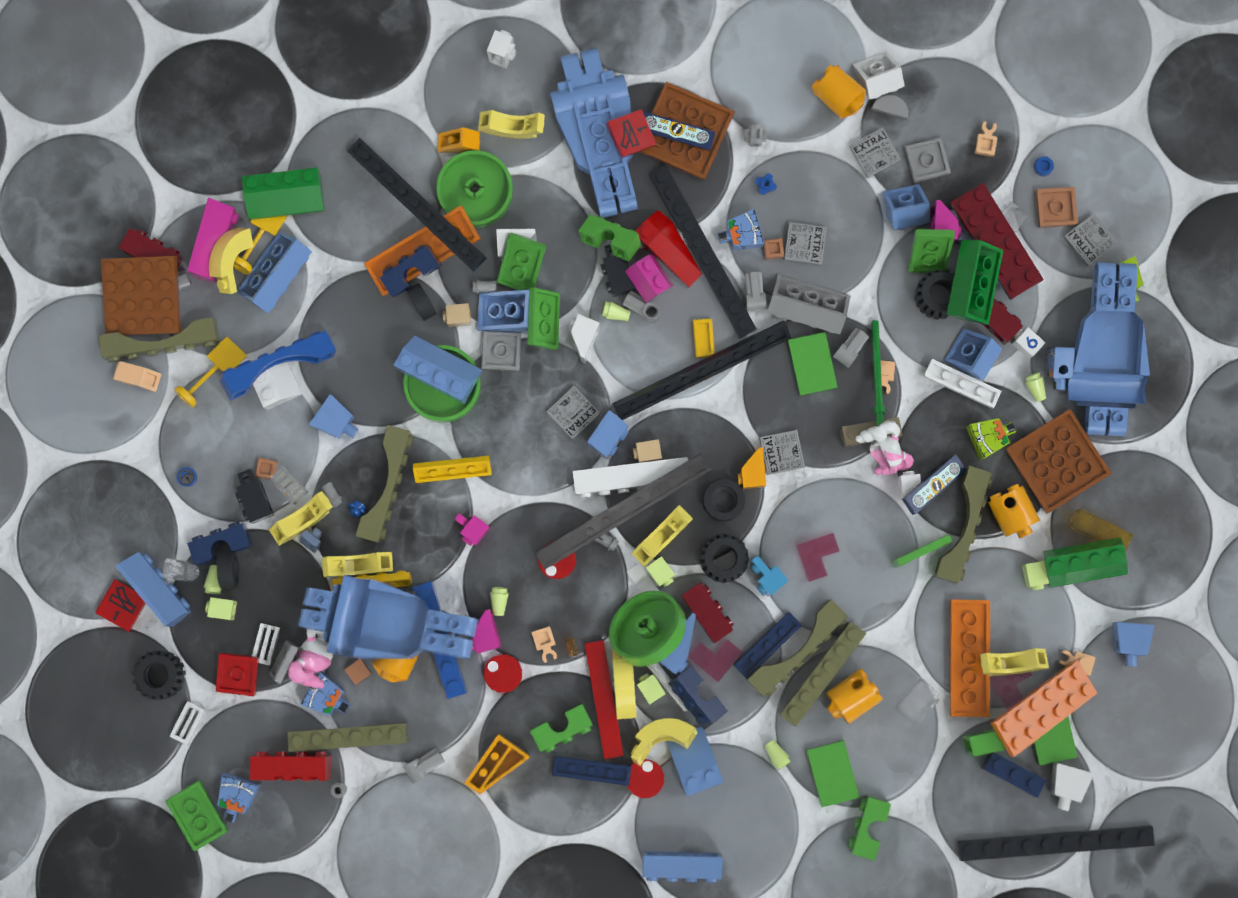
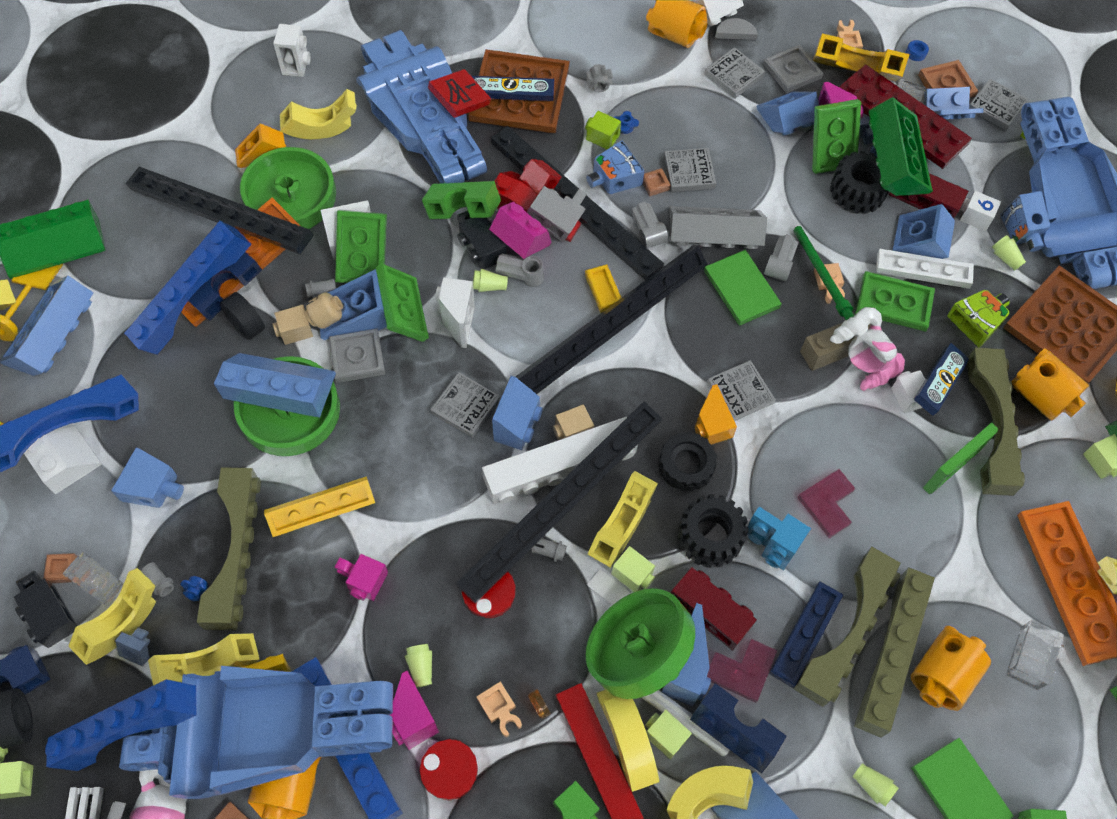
camera: 15 degrees left, 20 degrees down
(305, 598) = (152, 708): none -> blue arch
(365, 287) = (157, 321): none -> blue arch
(483, 312) = (324, 310): none -> tan head
(678, 228) = (539, 174): none -> brick
(682, 268) = (556, 213): none -> light grey hinge
(743, 189) = (603, 130): none -> lime brick
(929, 405) = (897, 300): none -> bright green tile
(1003, 181) = (835, 53): none -> yellow arch
(1044, 236) = (950, 102): none -> medium blue bracket

